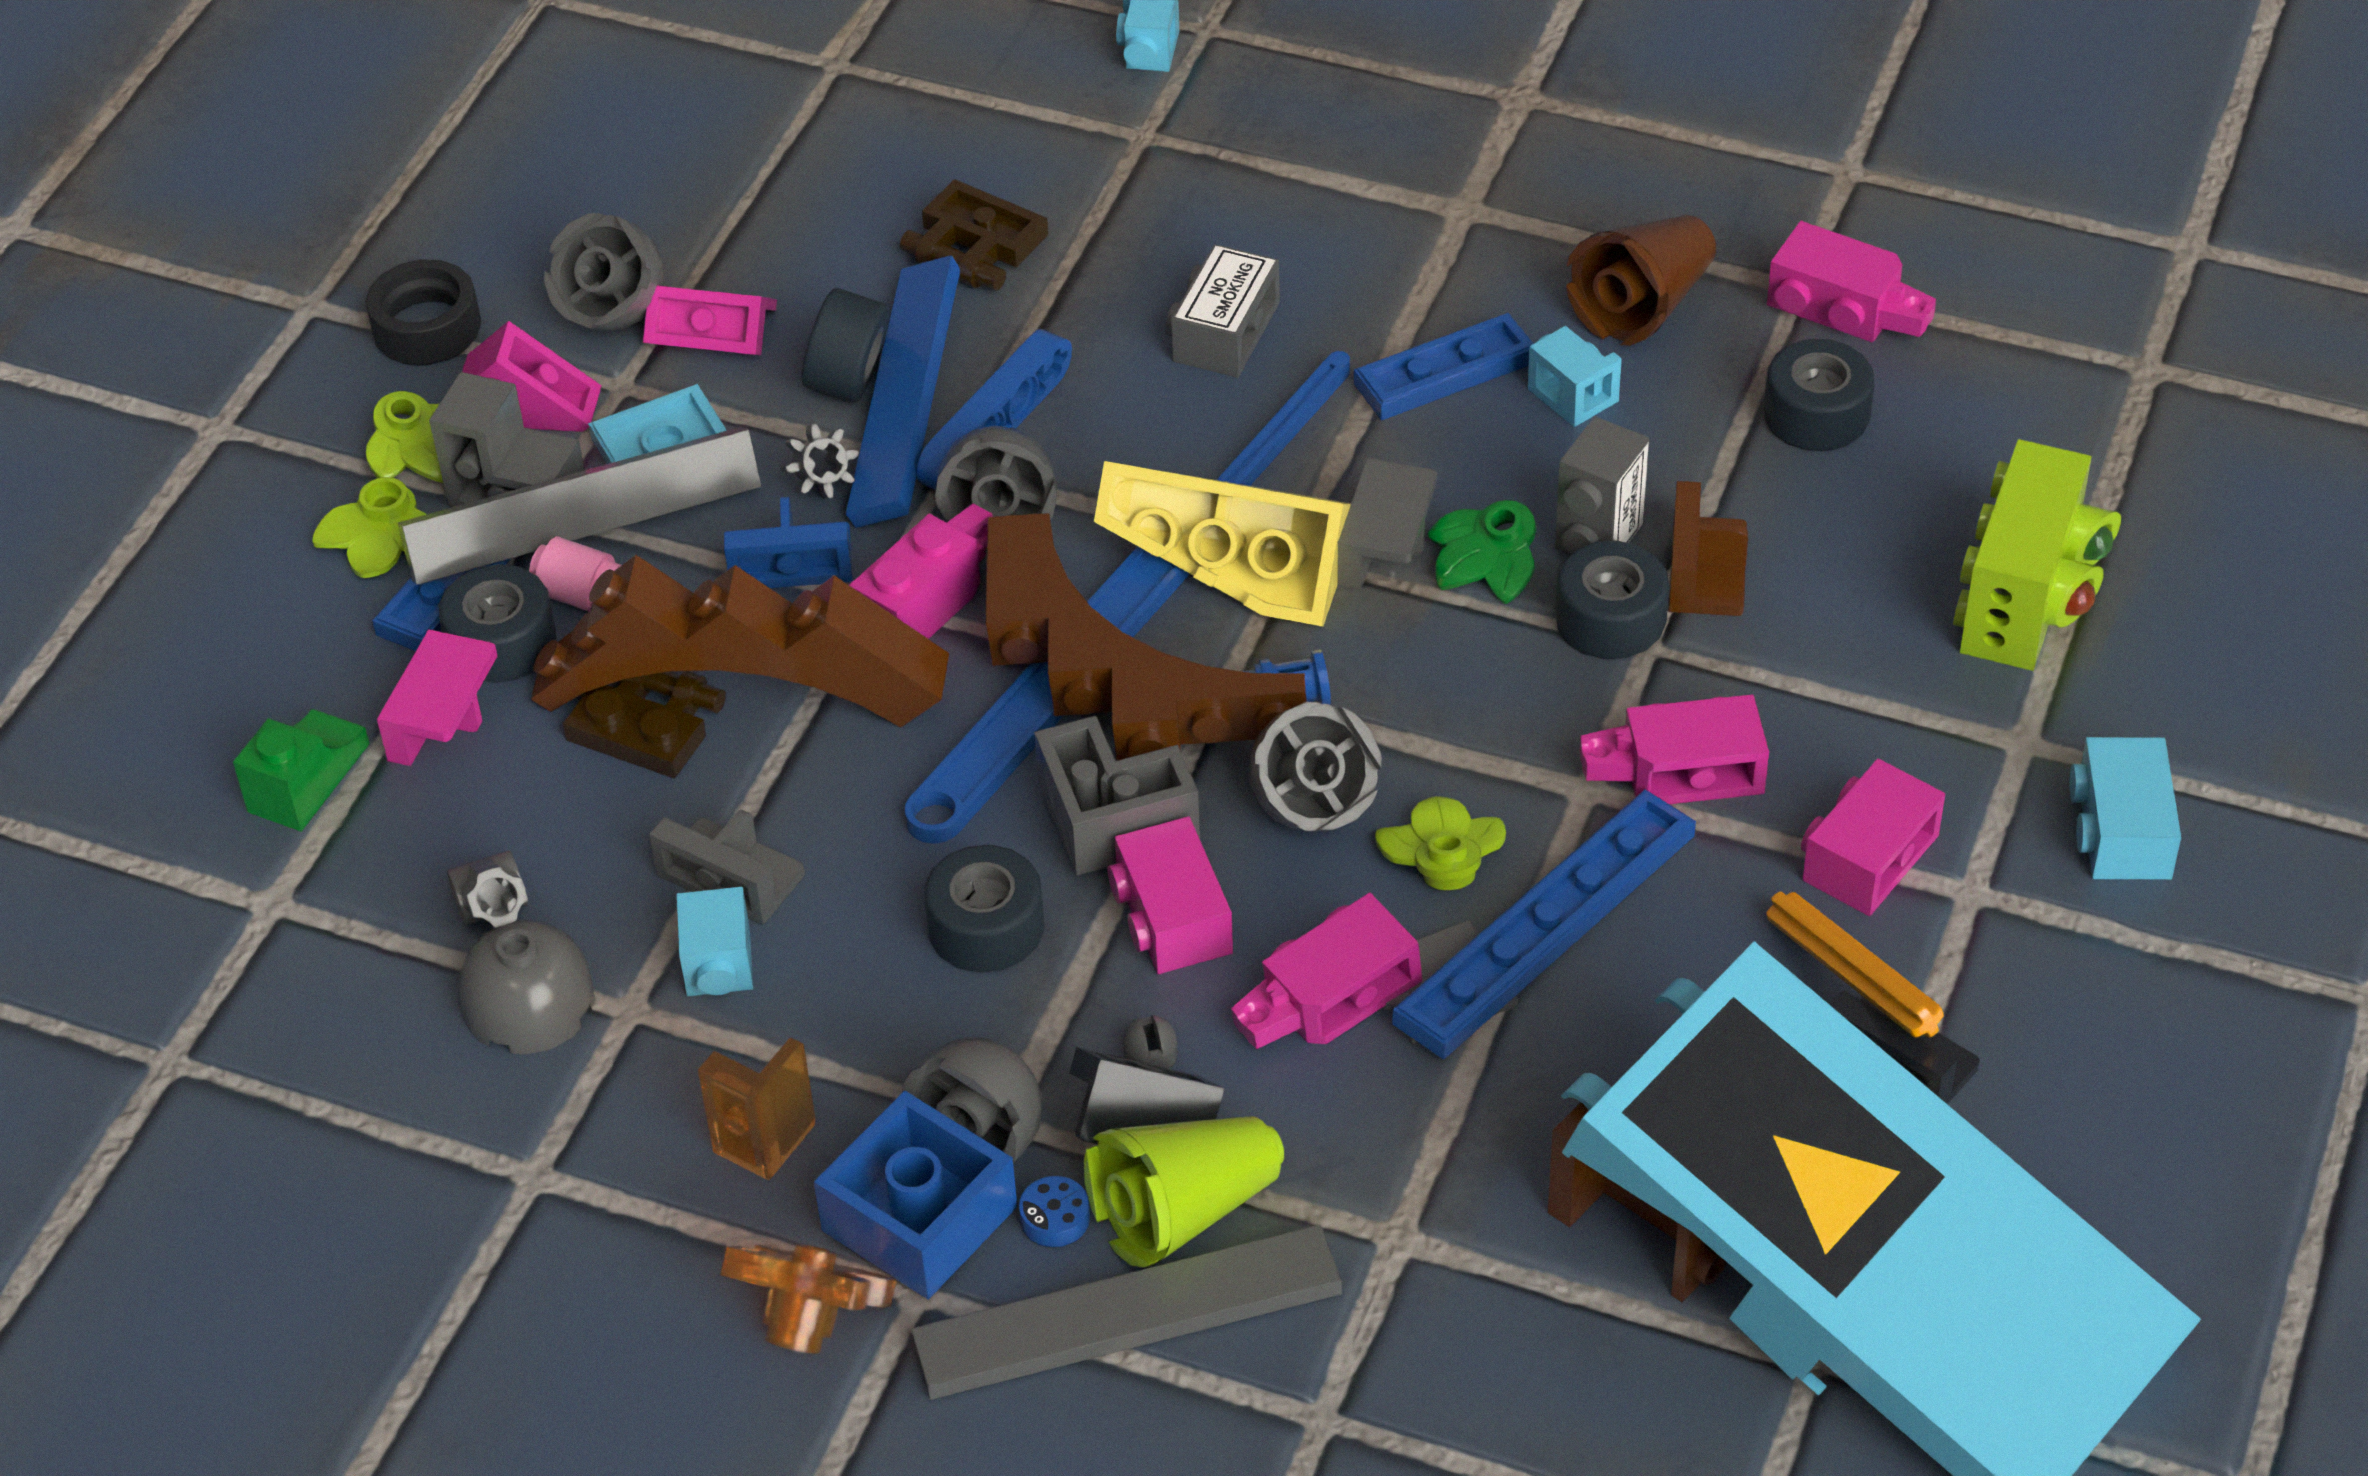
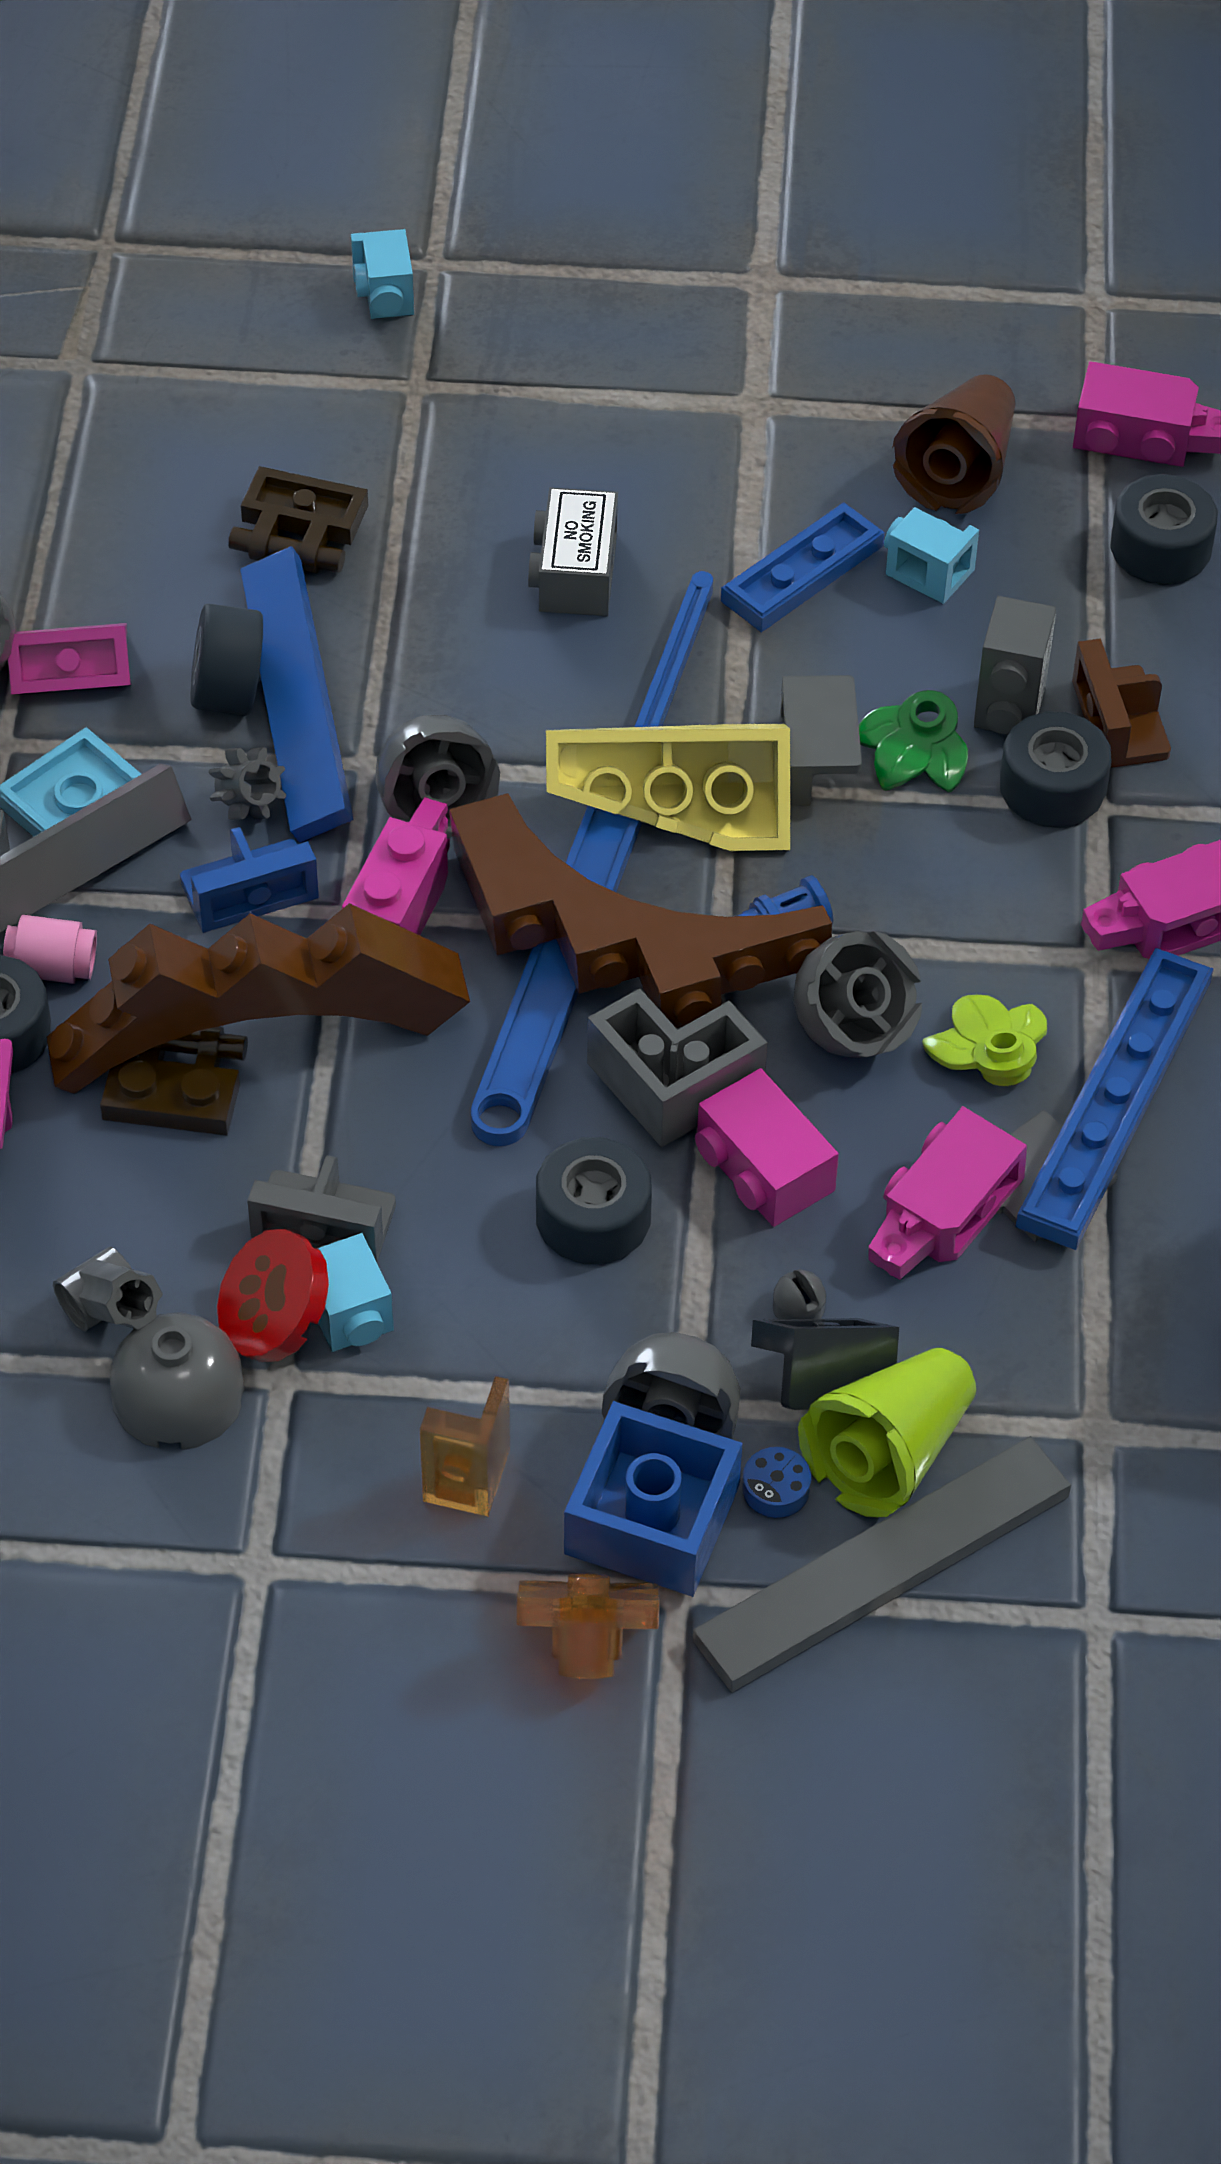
camera: 20 degrees left, 5 degrees up
(637, 925) = (272, 1295): none -> red tile
(1004, 397) = (395, 692): blue beam -> none

